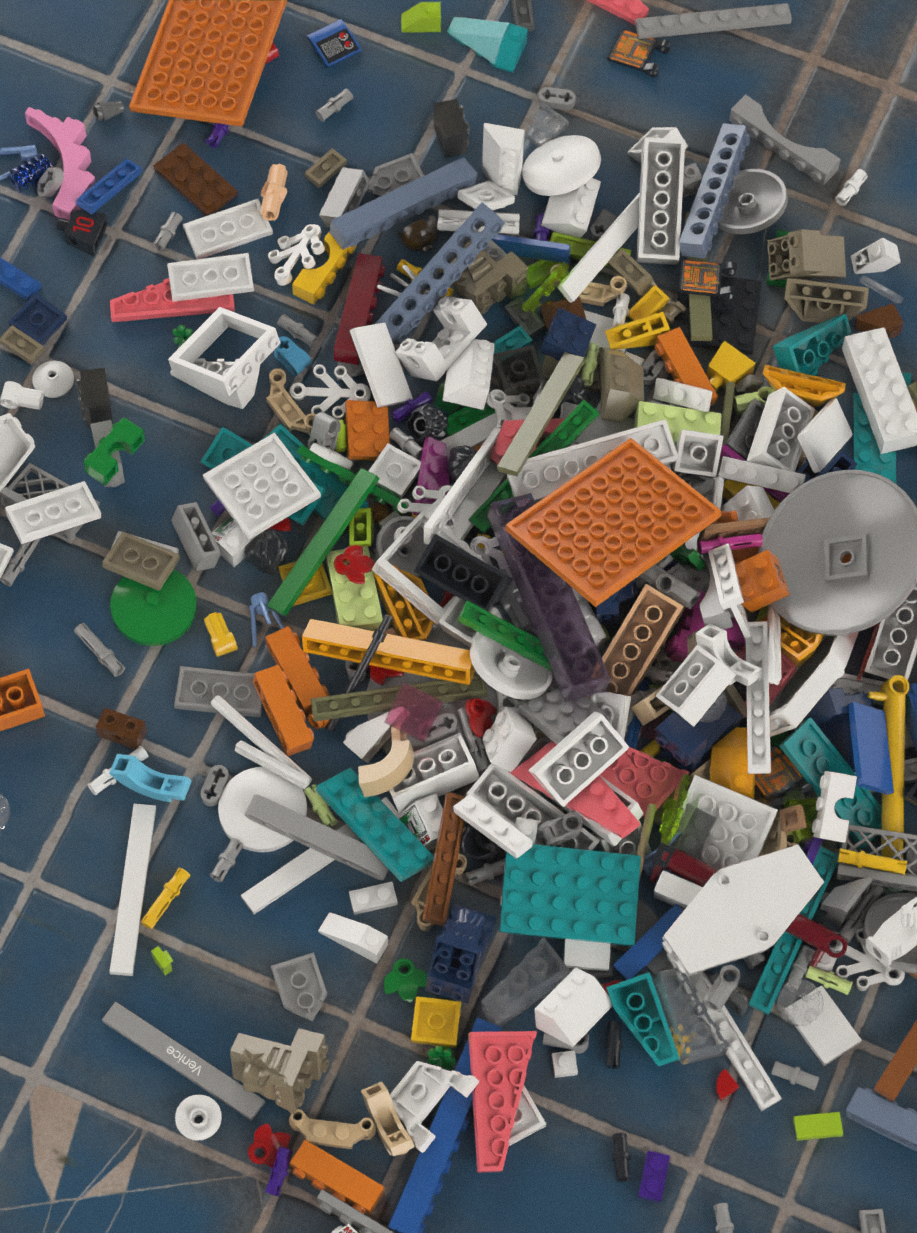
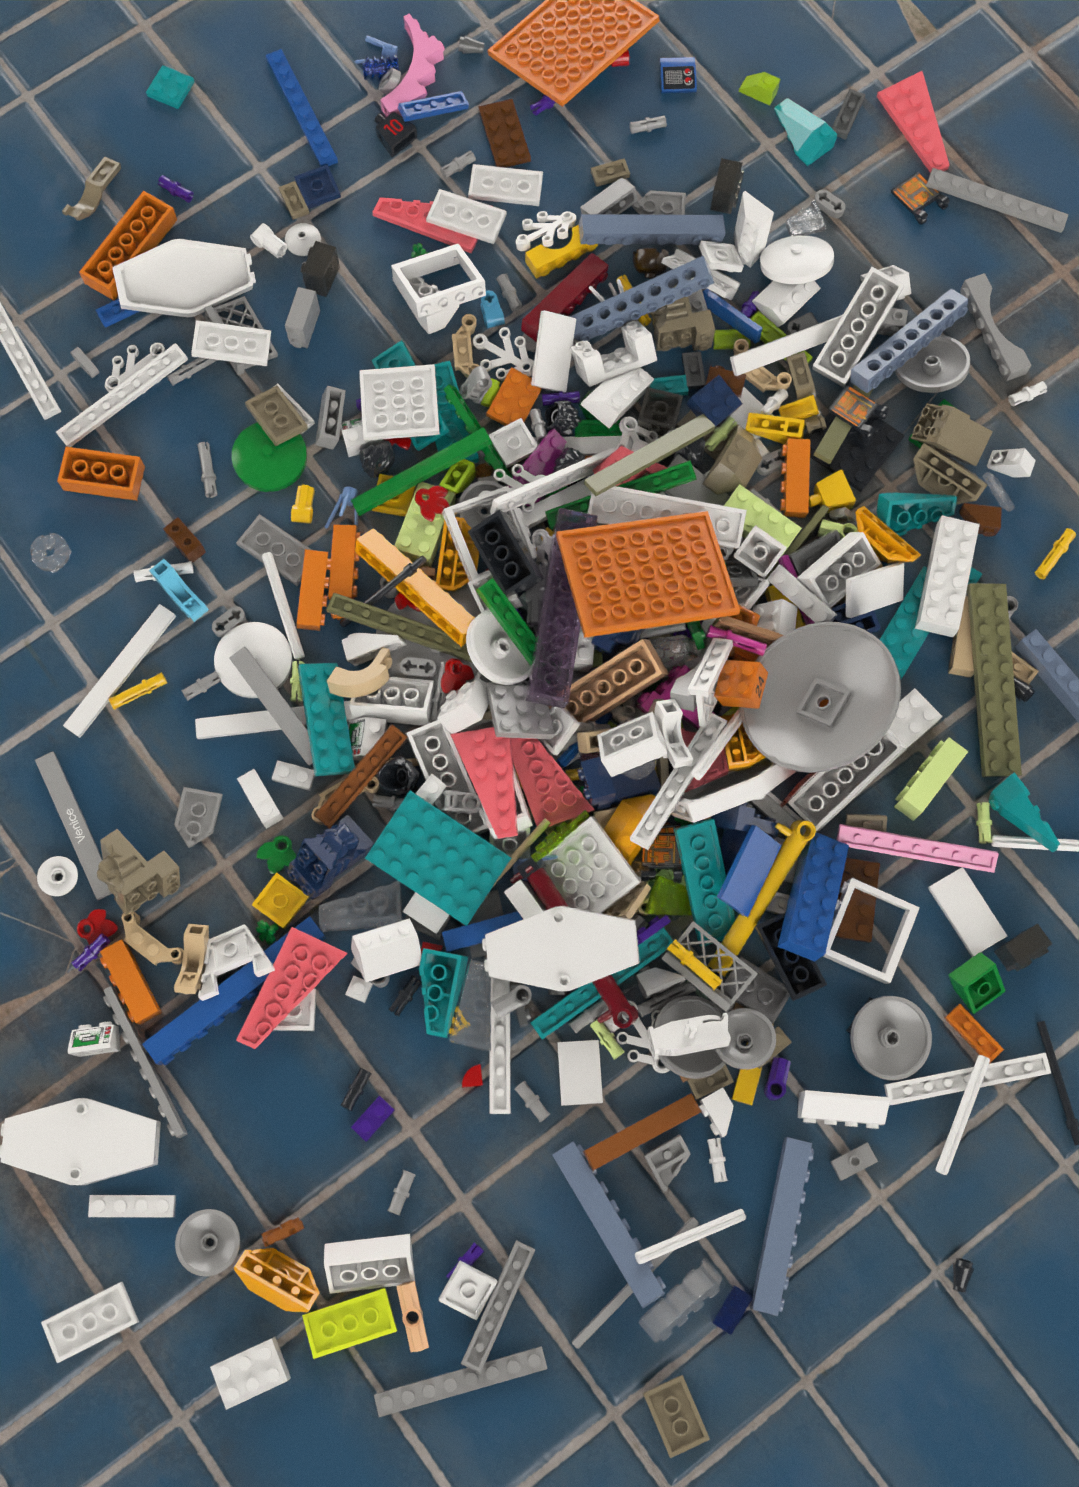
camera: 30 degrees right, 10 degrees up
(122, 436) = (311, 308): green arch -> none
(162, 959) = (106, 738): lime plate -> none
(272, 764) = (279, 629): white axle -> none
(273, 192) = (557, 172): light nougat piece -> none
(331, 456) = (468, 405): white tile -> none
(413, 712) = (403, 645): clear pink tile -> none
(493, 826) = (406, 771): white plate -> none
(546, 288) = (722, 353): clear neon green wing -> none
(579, 758) = (501, 754): white slope -> none
(678, 590) = (667, 657): light grey piece -> none
(682, 394) = (780, 496): white plate -> none
(696, 832) = (567, 862): dark grey plate -> none
(792, 818) = (651, 894): medium nougat plate -> none
(809, 993) = (580, 1040): clear plate -> none
(818, 1126) = (526, 1152): lime tile -> none
(833, 787) = (700, 888): white arch -> none

